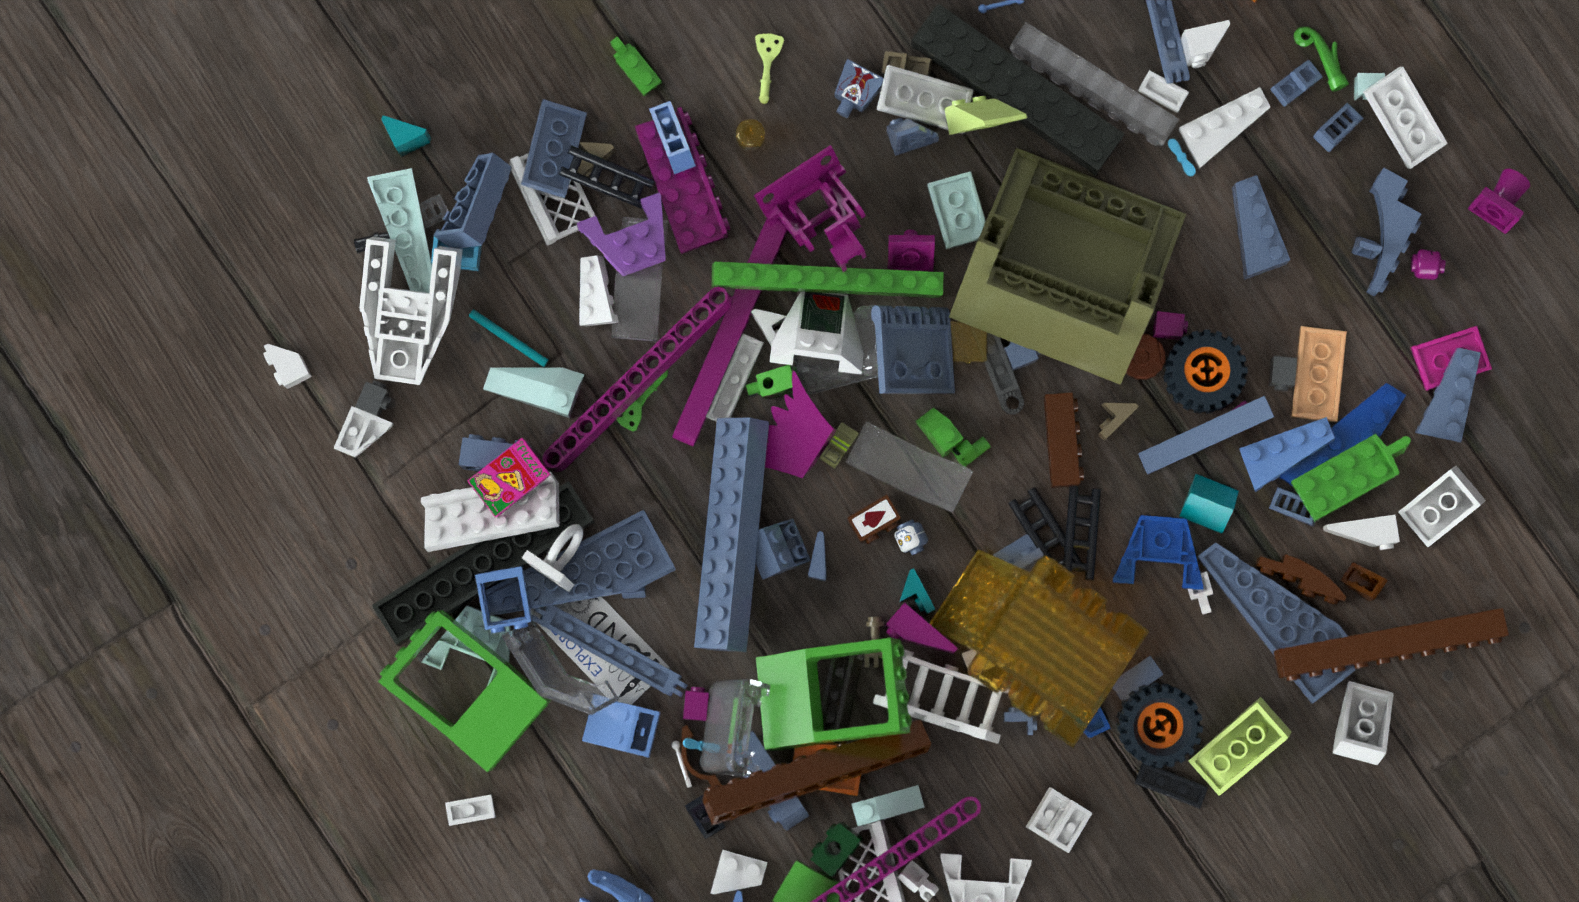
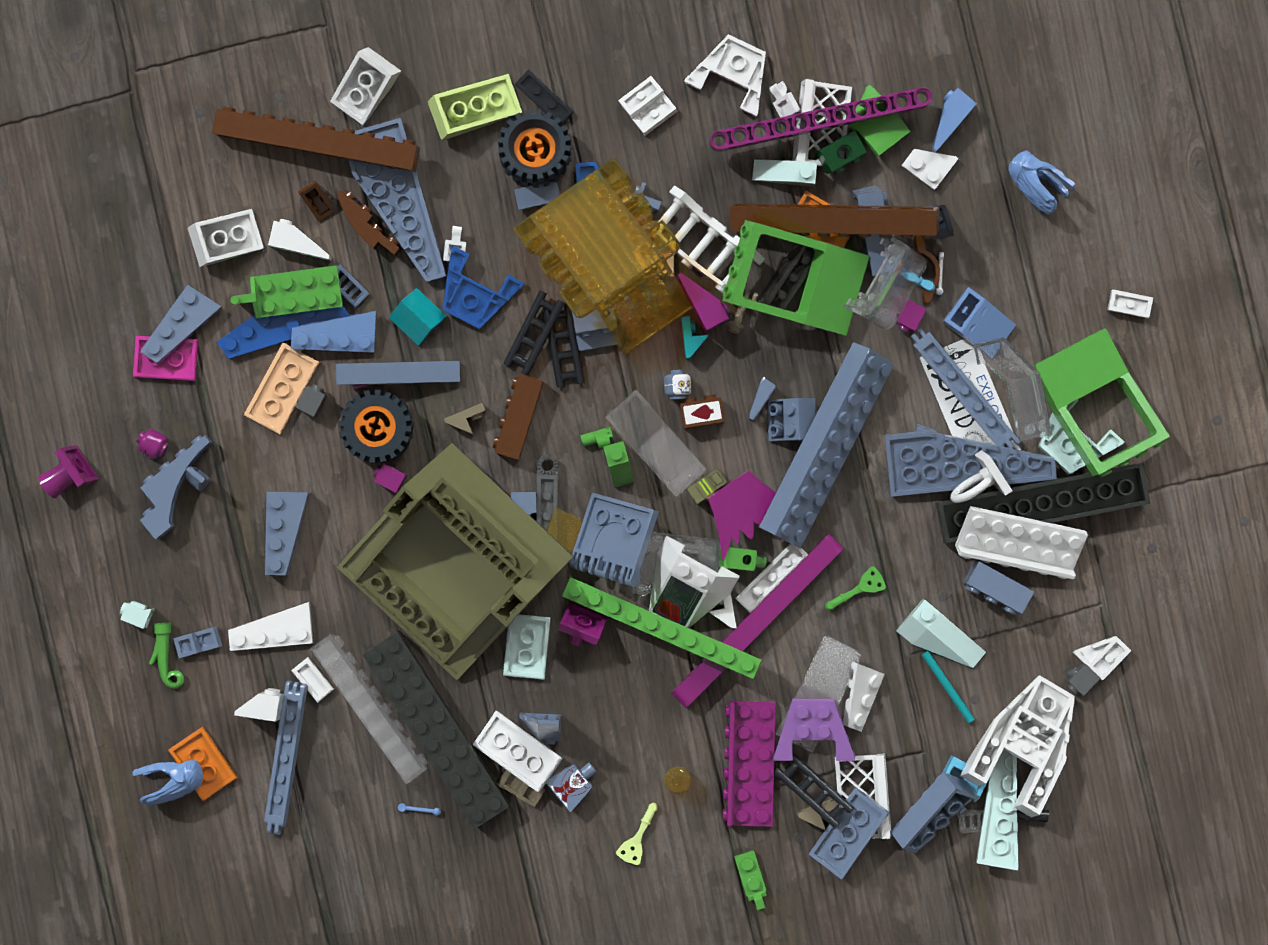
camera: 155 degrees left, 5 degrees up
(289, 366) = (1143, 736): white slope -> none
(405, 135) = (973, 893): teal slope -> none
(499, 626) = (1036, 485): medium blue window -> none
(509, 477) = (996, 563): tile -> none
(649, 376) = (864, 608): magenta beam -> none
(672, 137) = (745, 802): medium blue slope -> none
(802, 183) = (654, 717): magenta container -> none
(979, 114) = (477, 717): yellowish green slope -> none
(1147, 359) = (418, 456): copper tile -> none
(1181, 157) = (318, 605): medium azure piece -> none
(1327, 137) = (191, 587): sand blue slope -> none
(1405, 117) = (119, 575): white plate -> none

